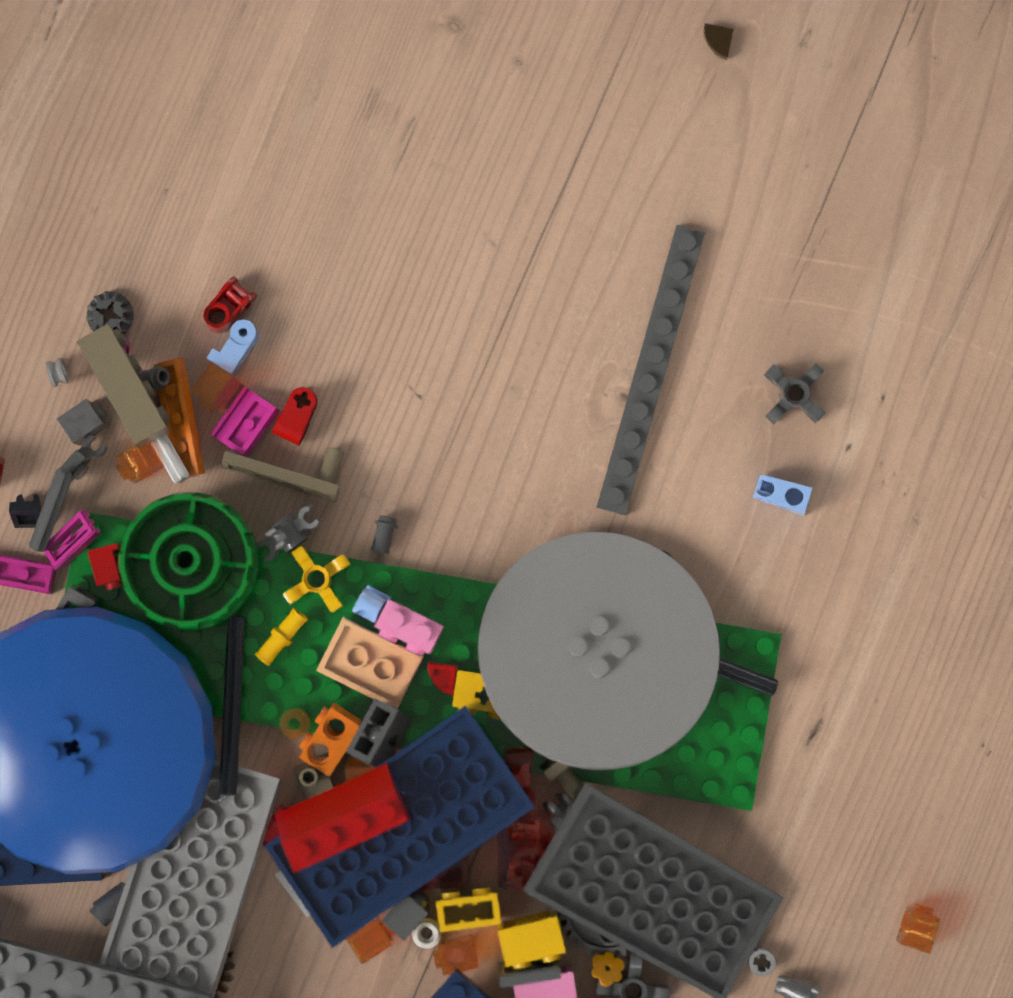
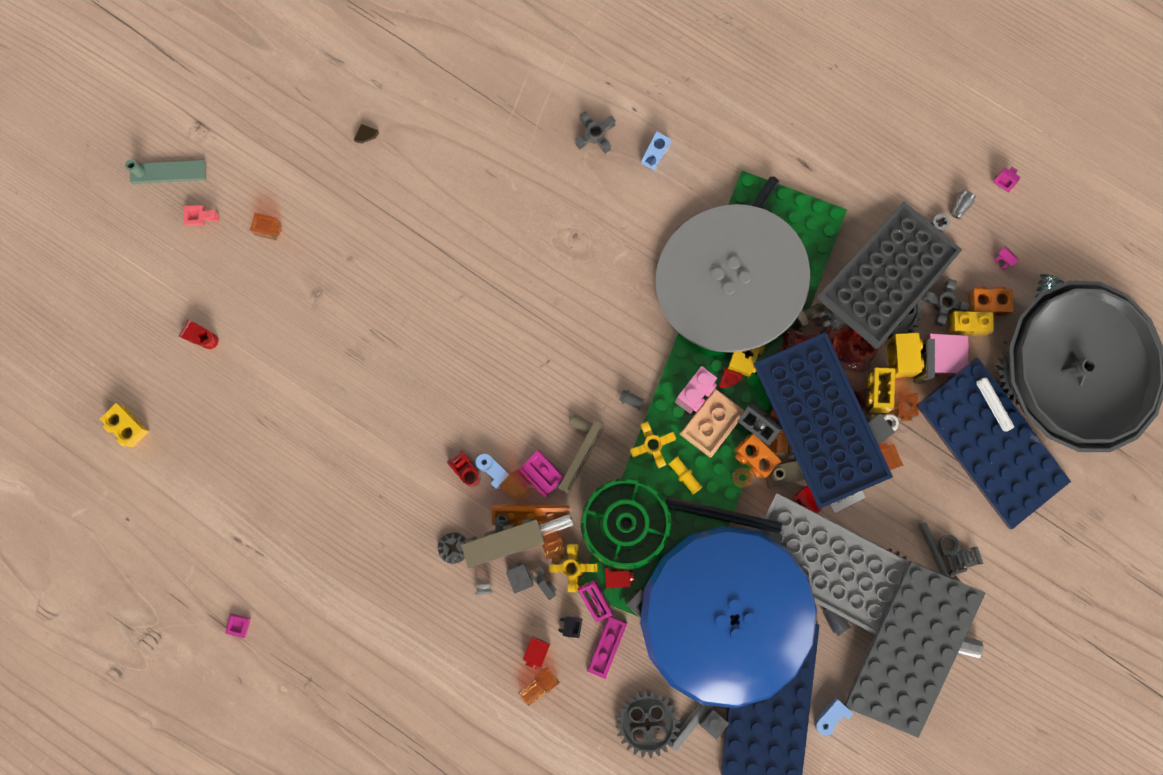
camera: 75 degrees left, 5 degrees down
(51, 510) = (573, 609): dark grey axle -> none
(109, 486) = (573, 580): none -> yellow pin
(288, 533) = (620, 456): dark grey pin -> none
(292, 421) = (547, 442): red piece -> none
(341, 818) = (811, 453): red slope -> none
(371, 603) = (676, 412): light blue leg -> none
(614, 967) = (930, 310): light orange plant -> none
(650, 370) = (562, 216): dark grey plate -> none
(918, 928) = (936, 125): clear orange brick -> none

